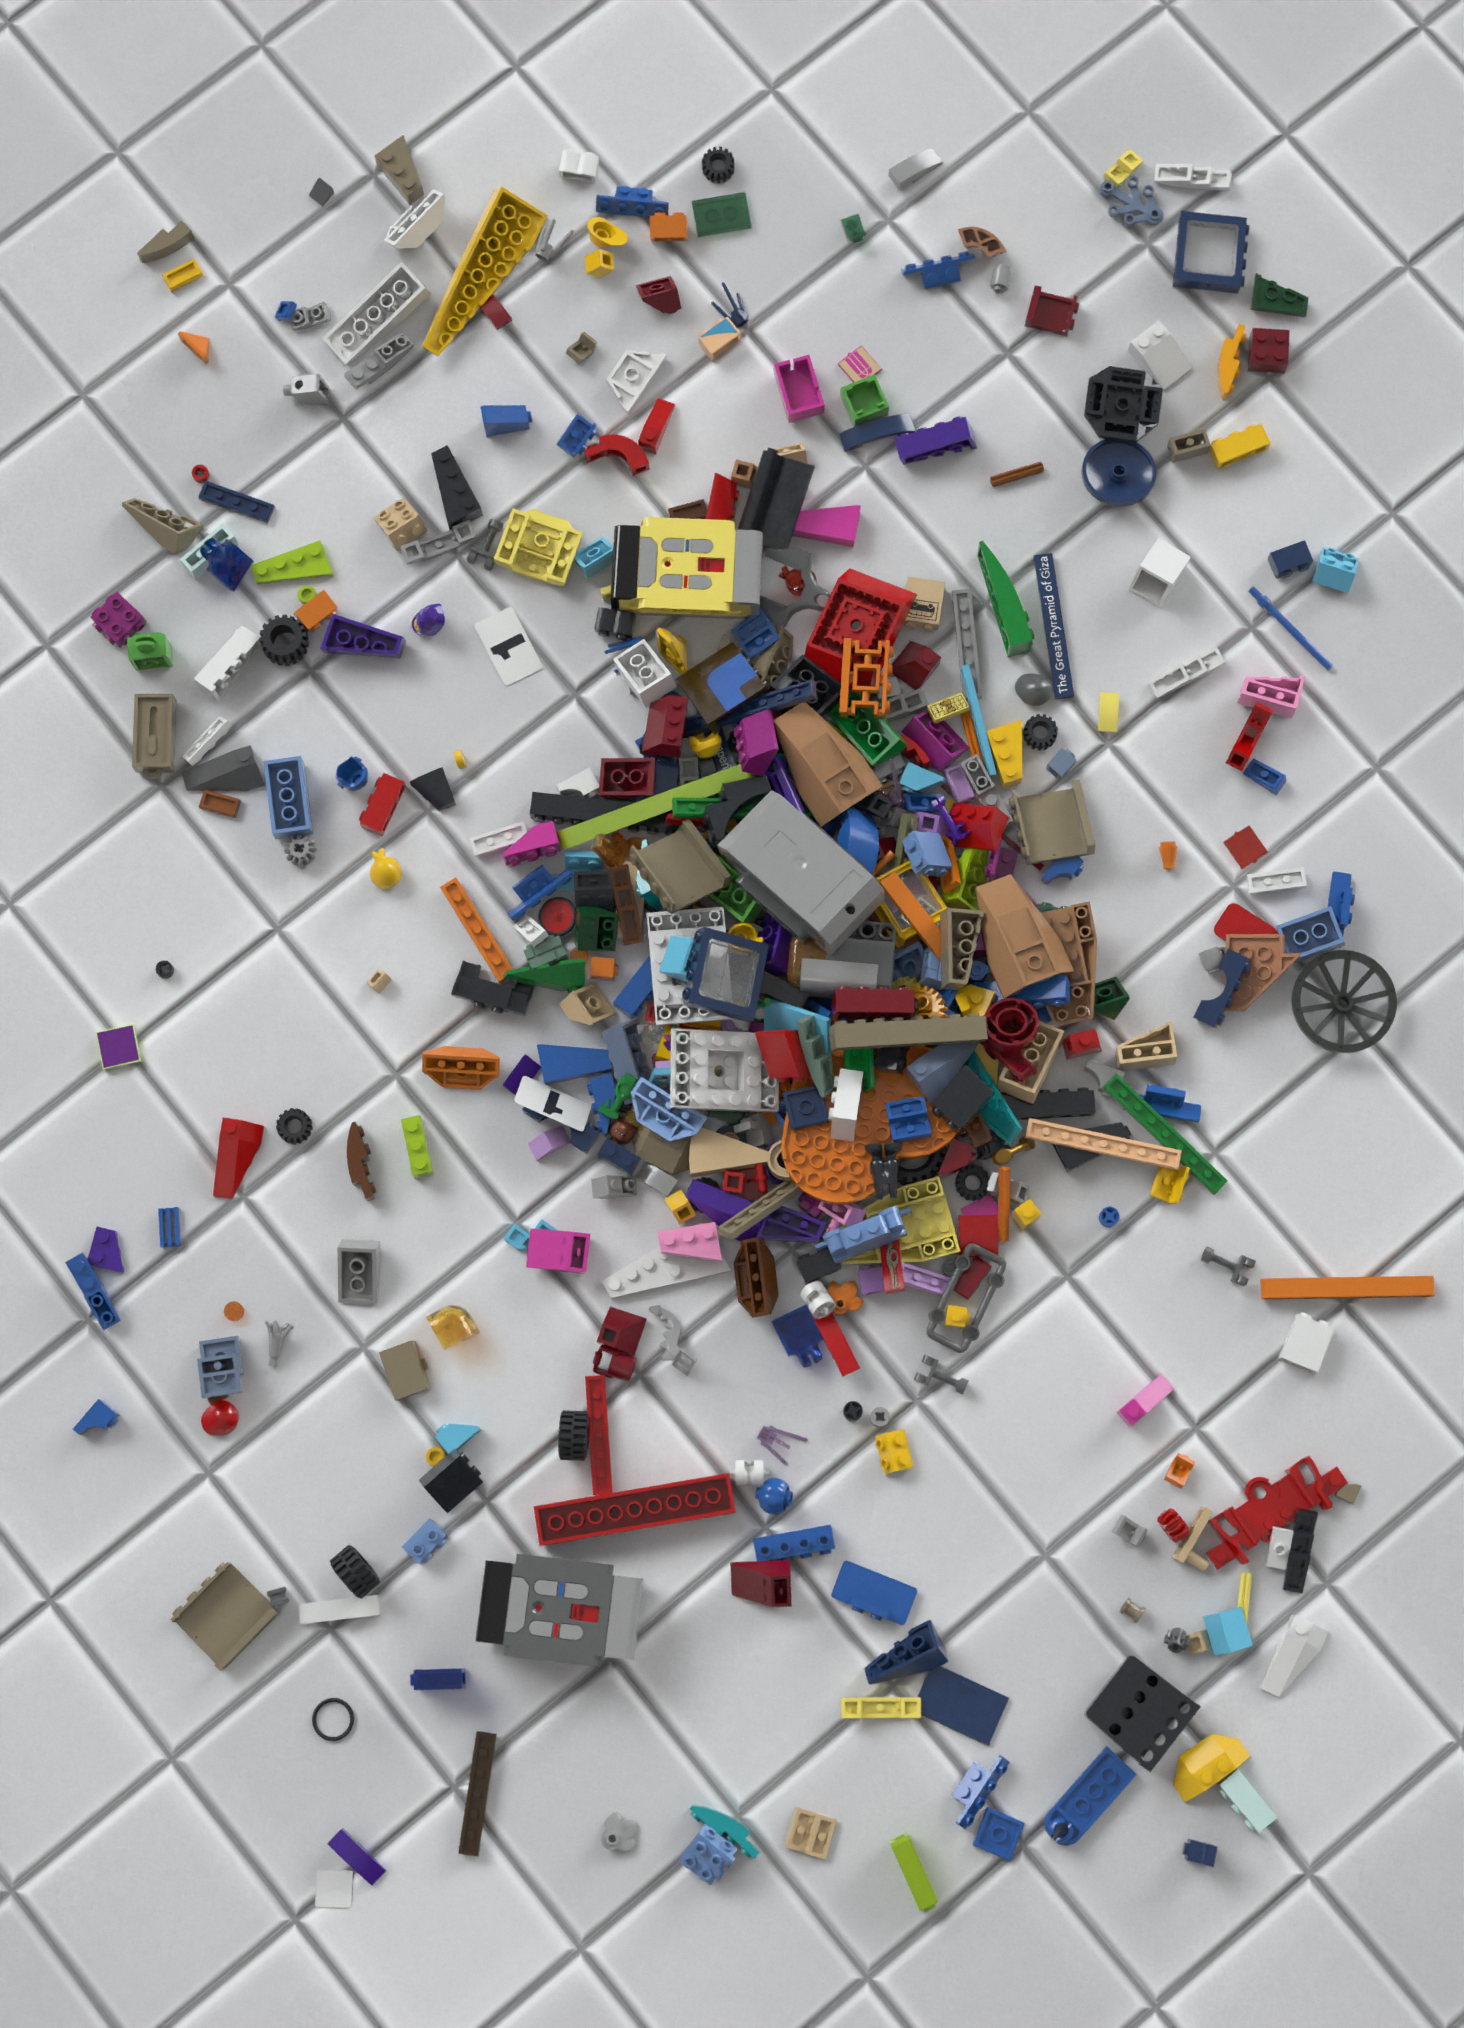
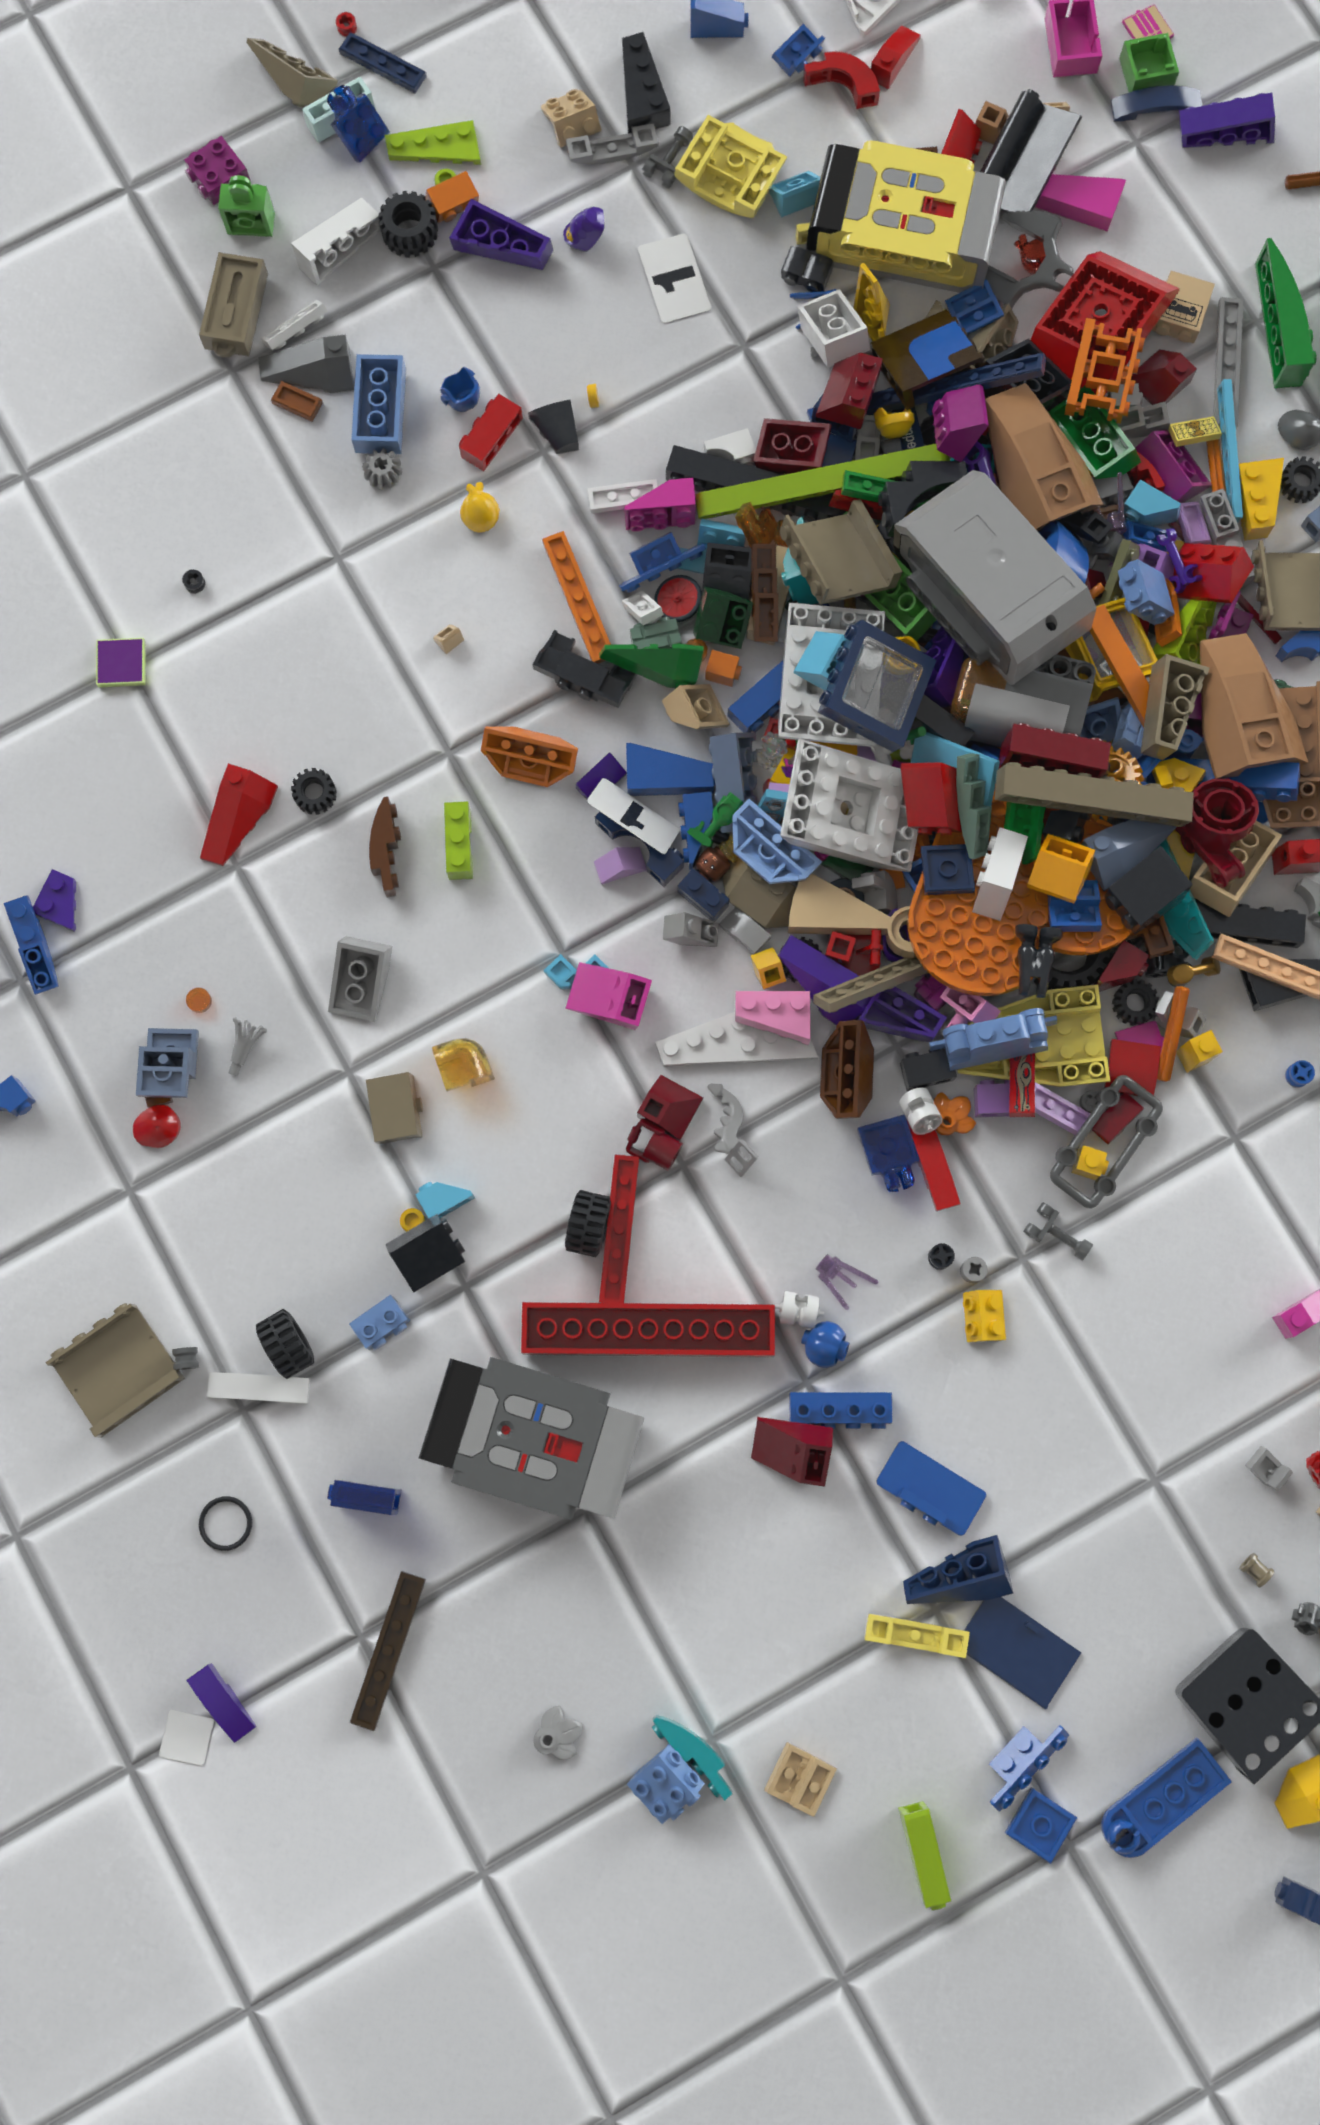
camera: 10 degrees right, 0 degrees up
(169, 1229) = (131, 882): blue tile -> none
(892, 1093) = (1061, 868): none -> light orange slope

